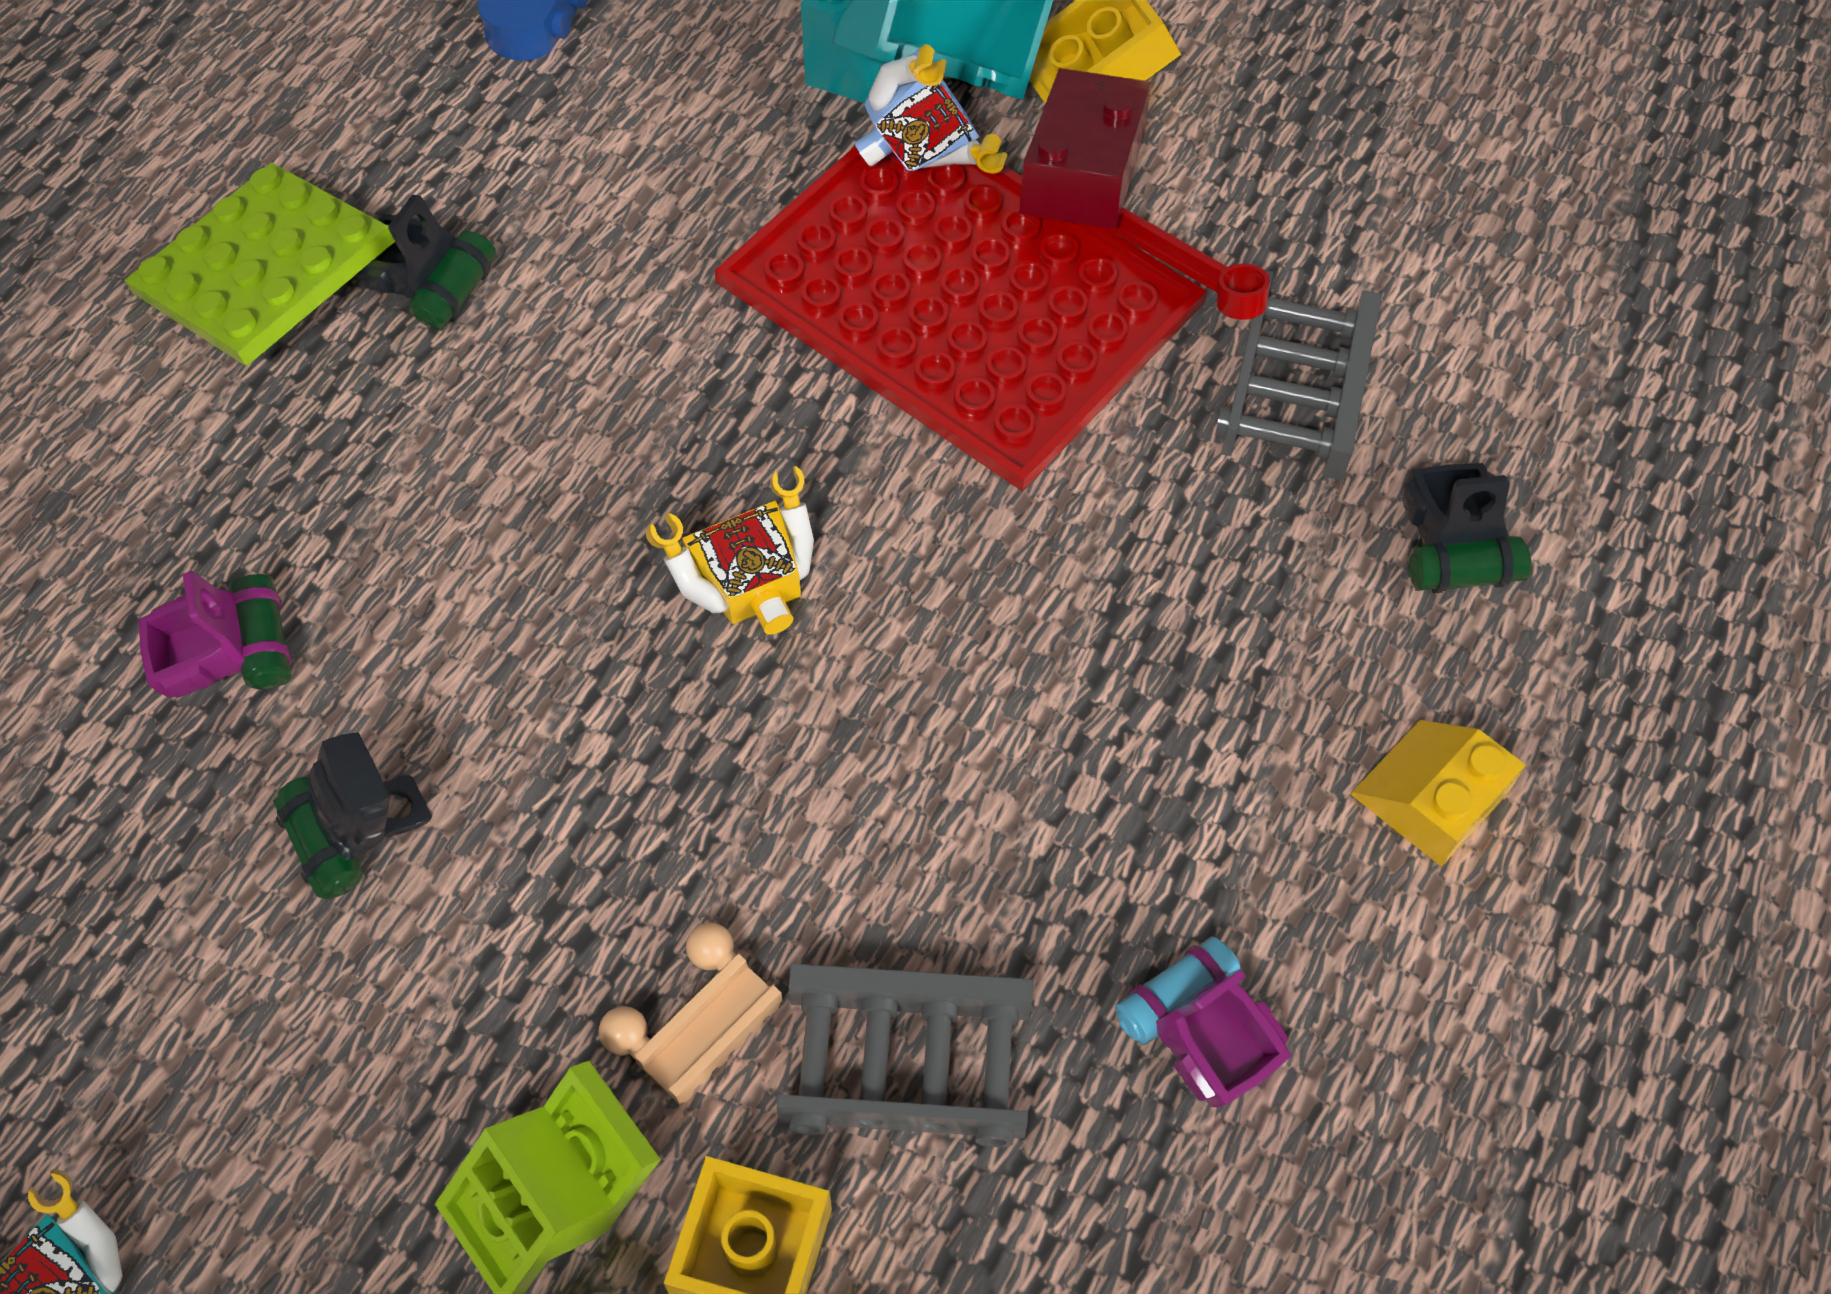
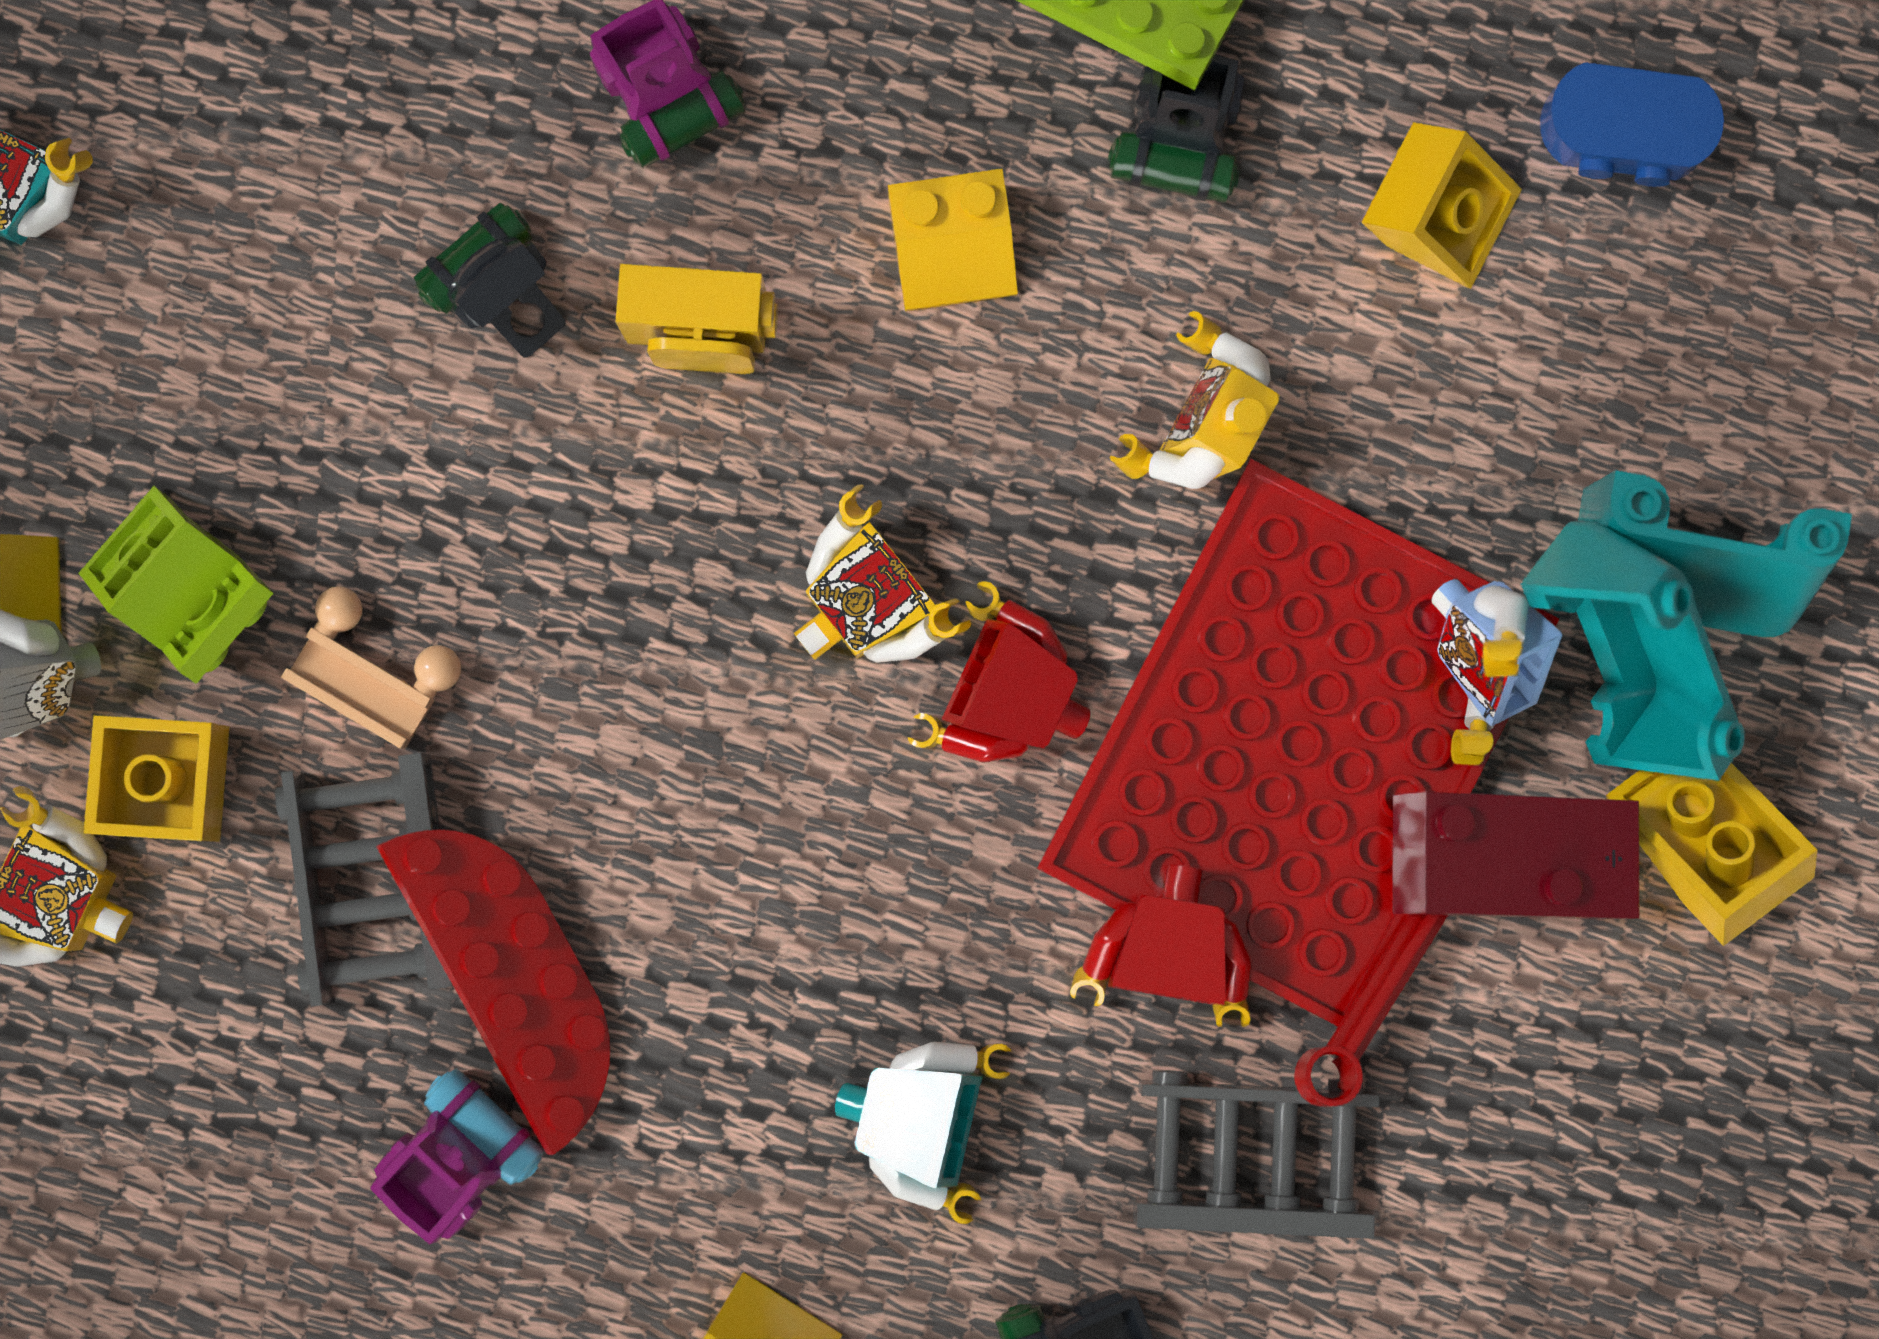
camera: 75 degrees right, 25 degrees up
(445, 640) = (696, 316): none -> yellow brick
(450, 442) = (953, 239): none -> yellow slope
(547, 117) = (1442, 202): none -> yellow slope
(673, 278) = (1217, 419): none -> torso
(860, 467) = (1010, 689): none -> red torso
(1030, 928) = (509, 973): none -> red plate
(1115, 388) = (1171, 950): none -> red torso
(1233, 606) = (920, 1121): none -> torso

